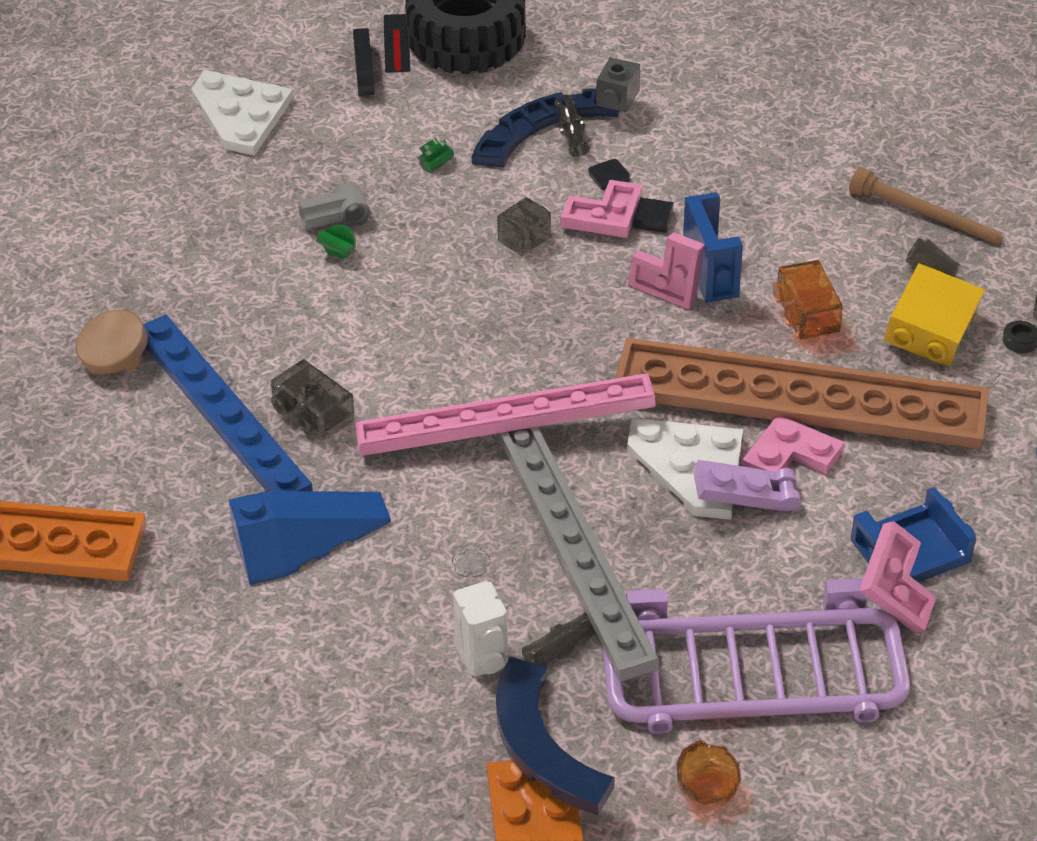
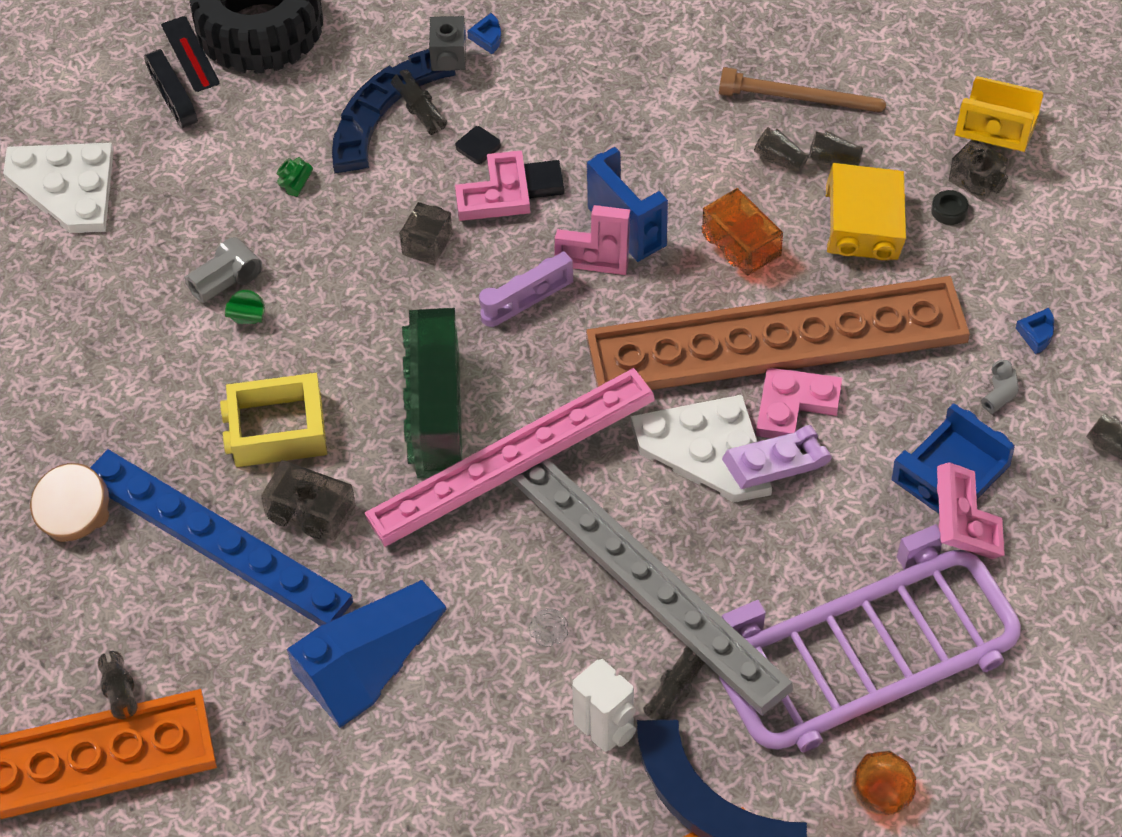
camera: 20 degrees left, 10 degrees up
(76, 488) = (117, 685): none -> clear smoke pin
(323, 354) = (281, 445): none -> light yellow window
(462, 341) = (432, 391): none -> clear green brick
(589, 293) = (525, 289): none -> lavender plate
(662, 91) = (486, 33): none -> blue tile
(880, 246) = (780, 150): none -> clear smoke cone
(997, 495) = (1005, 386): none -> light grey arm

